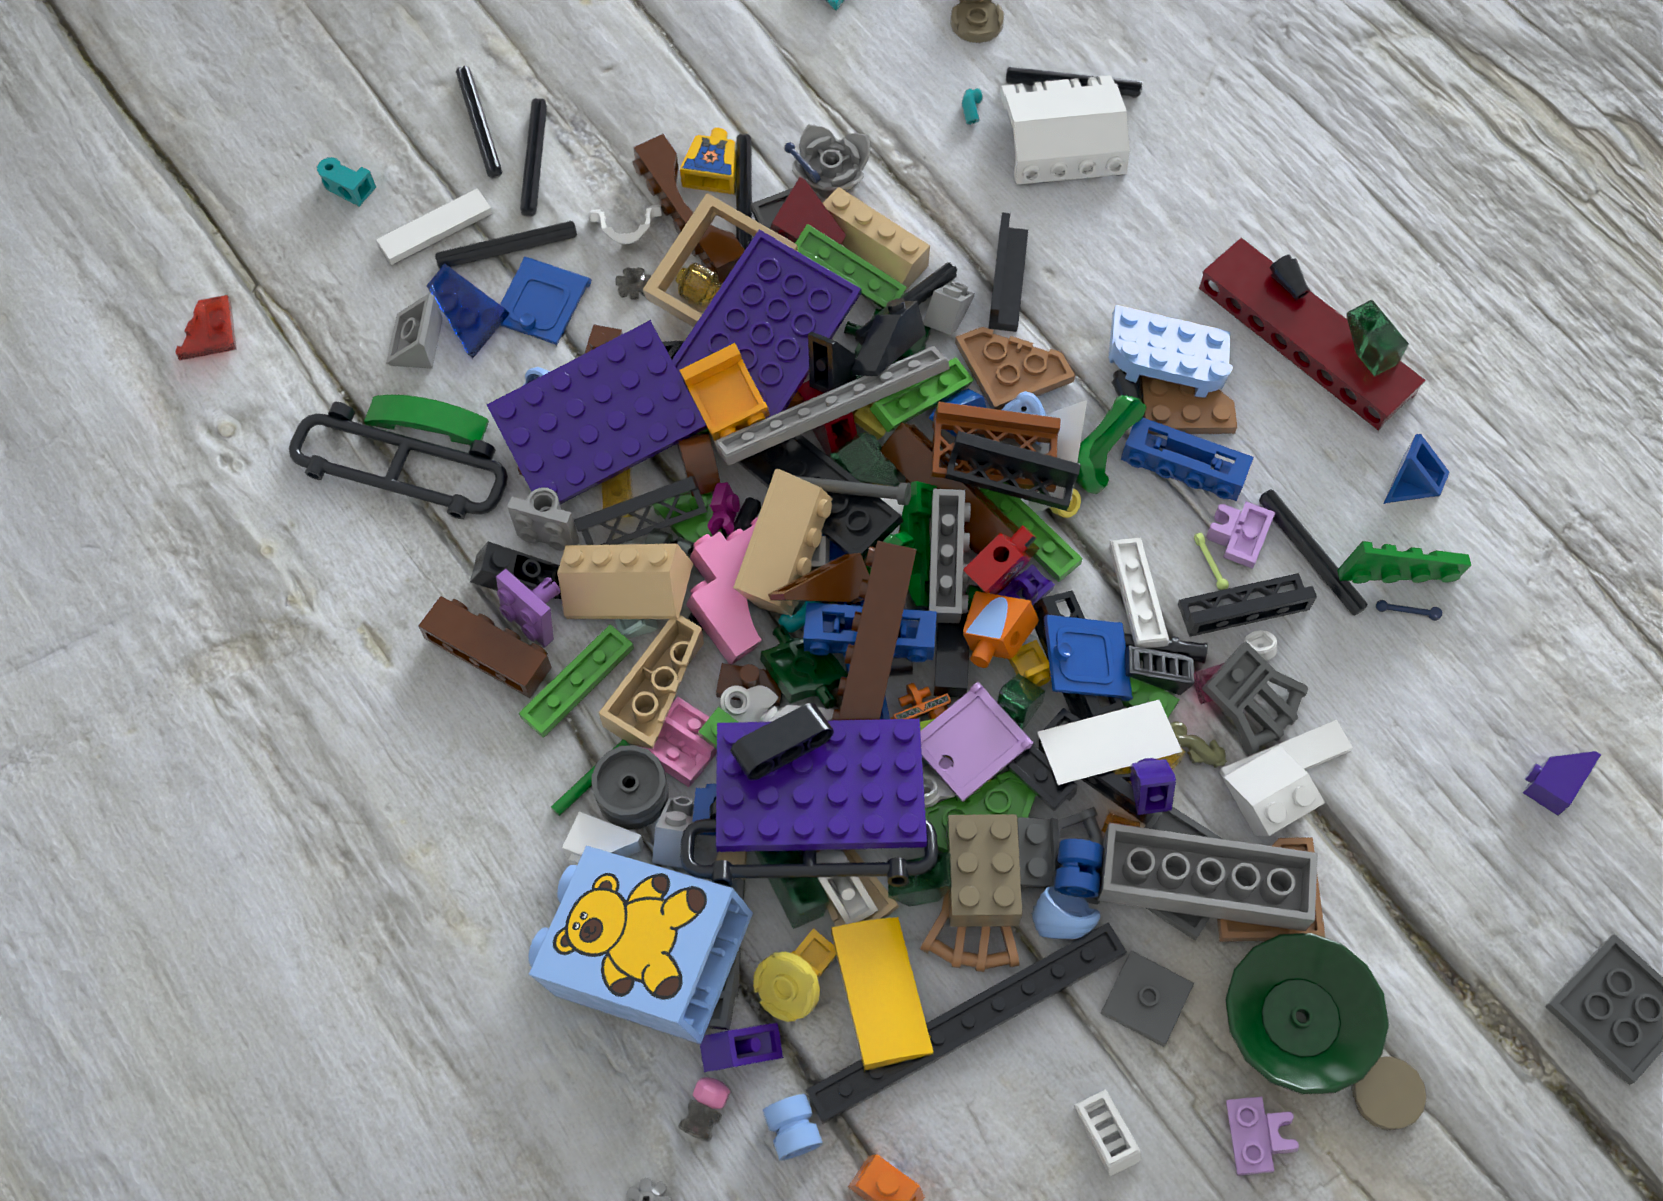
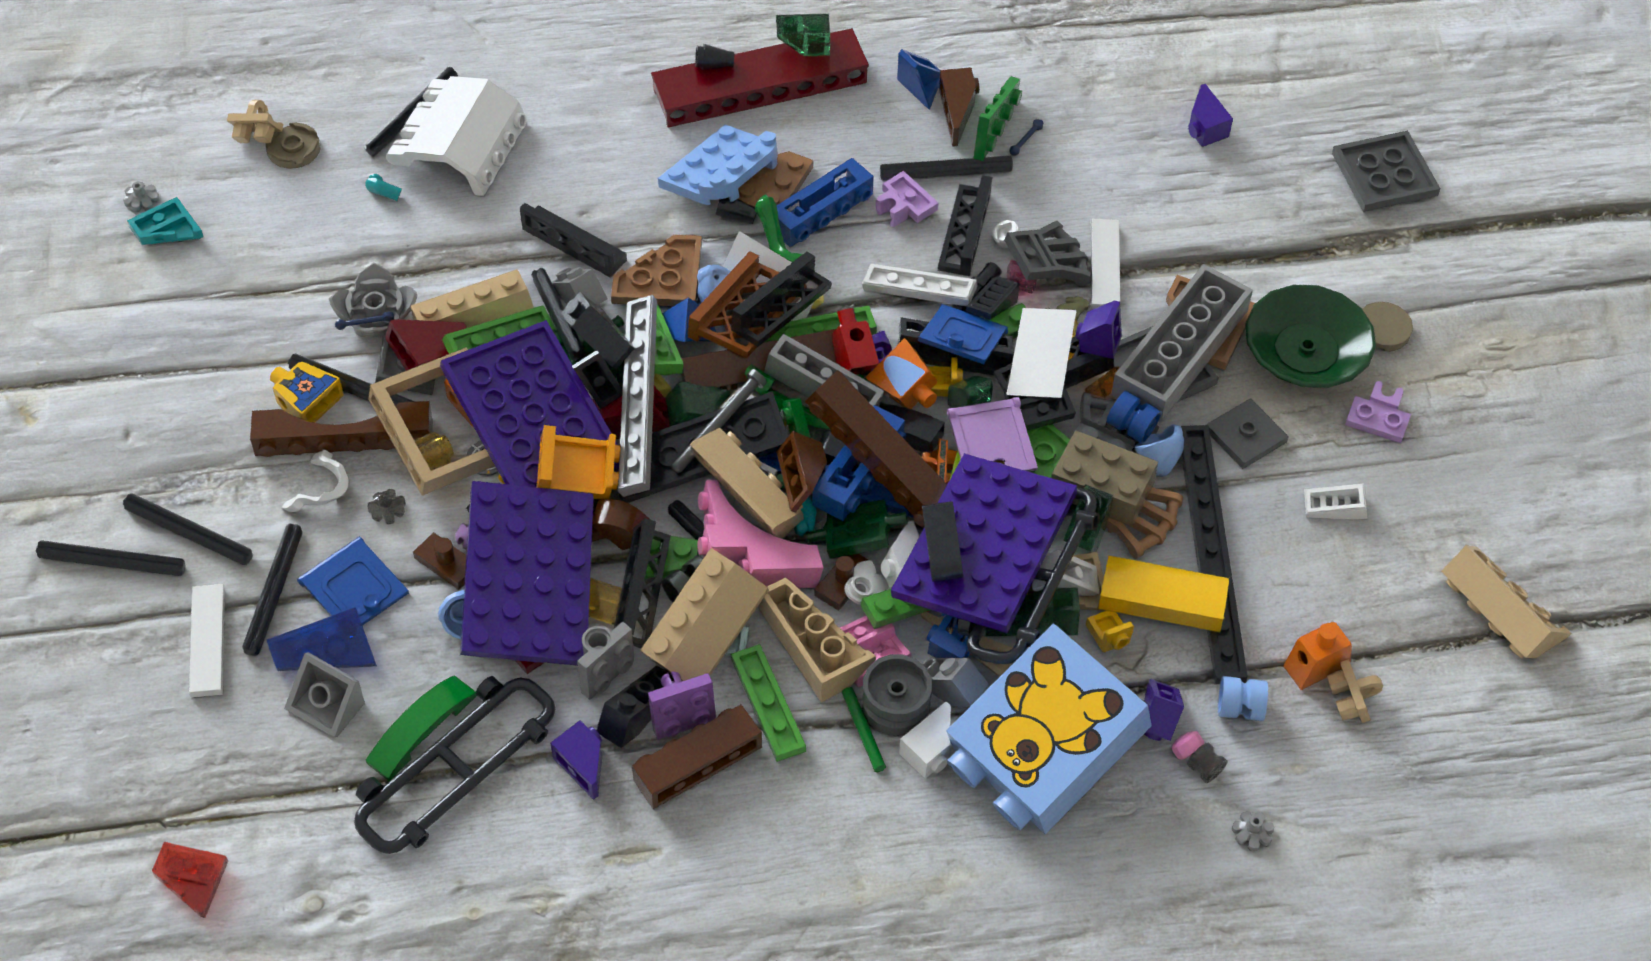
camera: 65 degrees left, 10 degrees down
(345, 182) = (97, 695): teal leg -> none
(444, 556) = (580, 755): none -> dark purple slope
(724, 507) = (671, 523): magenta plate -> none
(786, 986) = (1128, 652): light yellow tile -> none
(1221, 582) = (894, 230): yellowish green hinge -> none
(1272, 791) = (1132, 277): white slope -> none
(1407, 522) = (958, 98): none -> reddish brown slope

